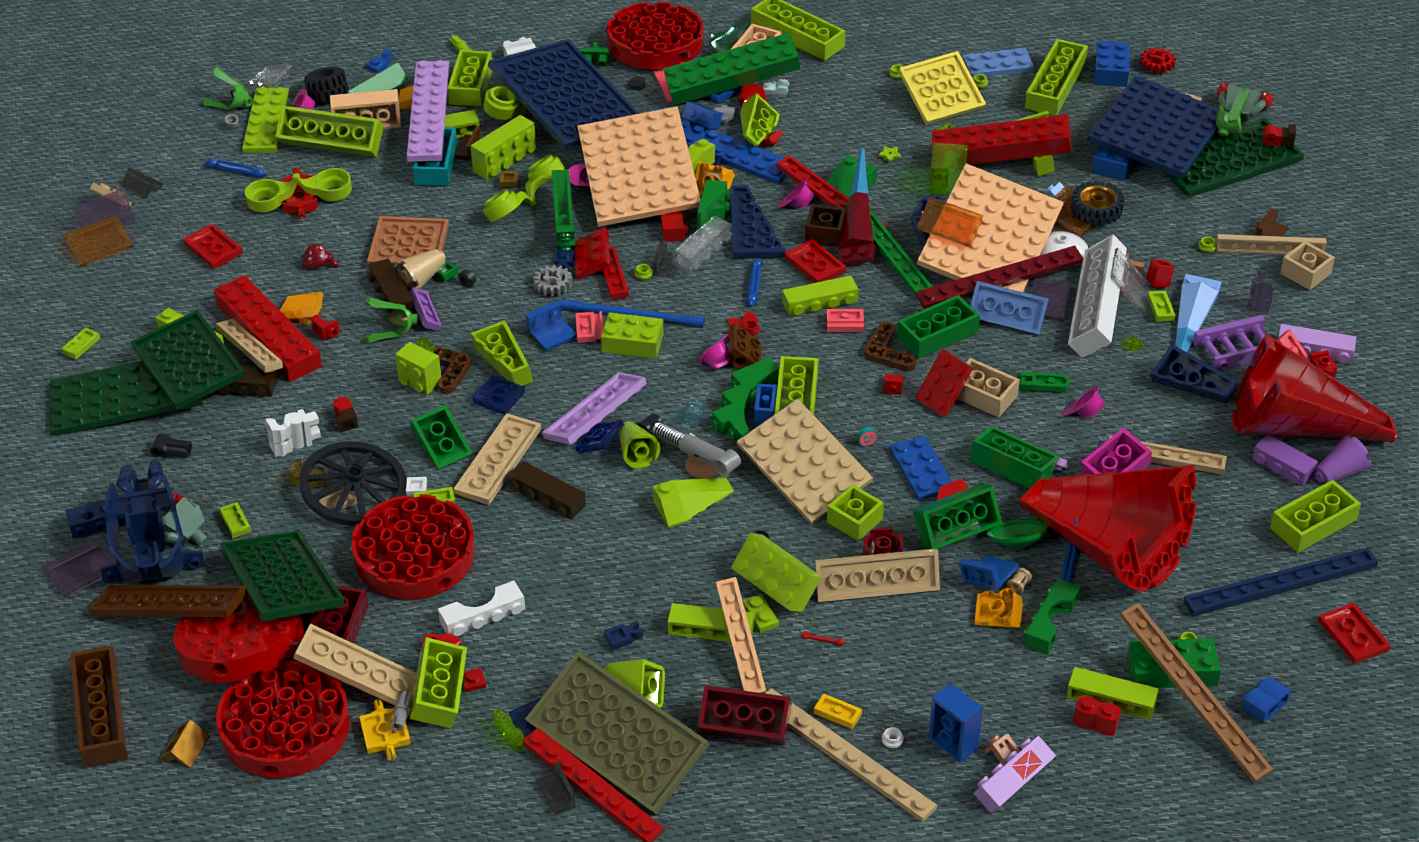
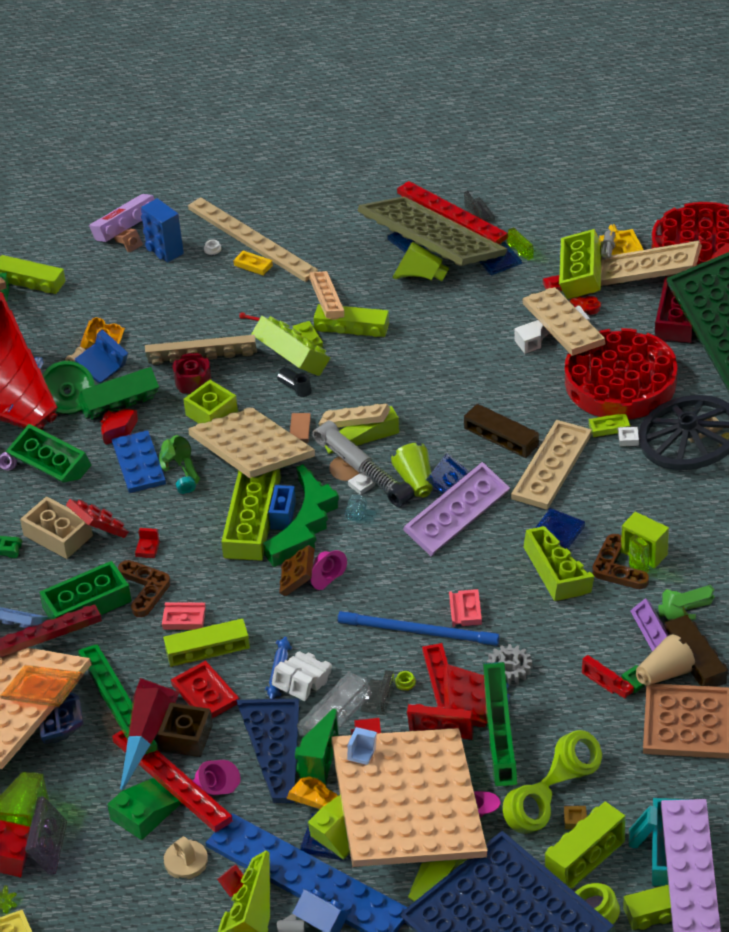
camera: 175 degrees left, 0 degrees up
(345, 414) = (713, 506): dark brown leg -> none
(440, 437) = (613, 481): green slope -> none
(457, 160) = (643, 827): none -> teal tile
(464, 149) = (635, 874): reddish brown panel -> none
(466, 278) = (611, 664): pearl dark grey tile -> none
(468, 594) = (563, 321): none -> tan plate
(482, 275) = (605, 677): none -> red hinge
(548, 326) = (508, 603): blue bracket -> none
(621, 224) = (437, 718): none -> red plate
(622, 636) = (427, 313): dark blue plate -> none
(632, 335) = (417, 590): lime brick -> none
(675, 182) = (361, 746): none -> light blue panel
(700, 492) = (357, 415): none -> tan plate
(730, 265) = (301, 674): none -> white hips
(744, 715) = (328, 244): dark red brick -> none
(748, 322) = (296, 615): red plate -> none
(757, 502) = (300, 426): none -> nougat tile
(811, 153) = (185, 859): none -> tan tile
(889, 462) = (178, 449): none -> bright green piece
(890, 153) = (83, 864): lime plate -> none
(920, 153) = (46, 835): none -> tile
(1060, 599) = (47, 342): green arch -> none
(1098, 716) = (47, 255): red brick -> none

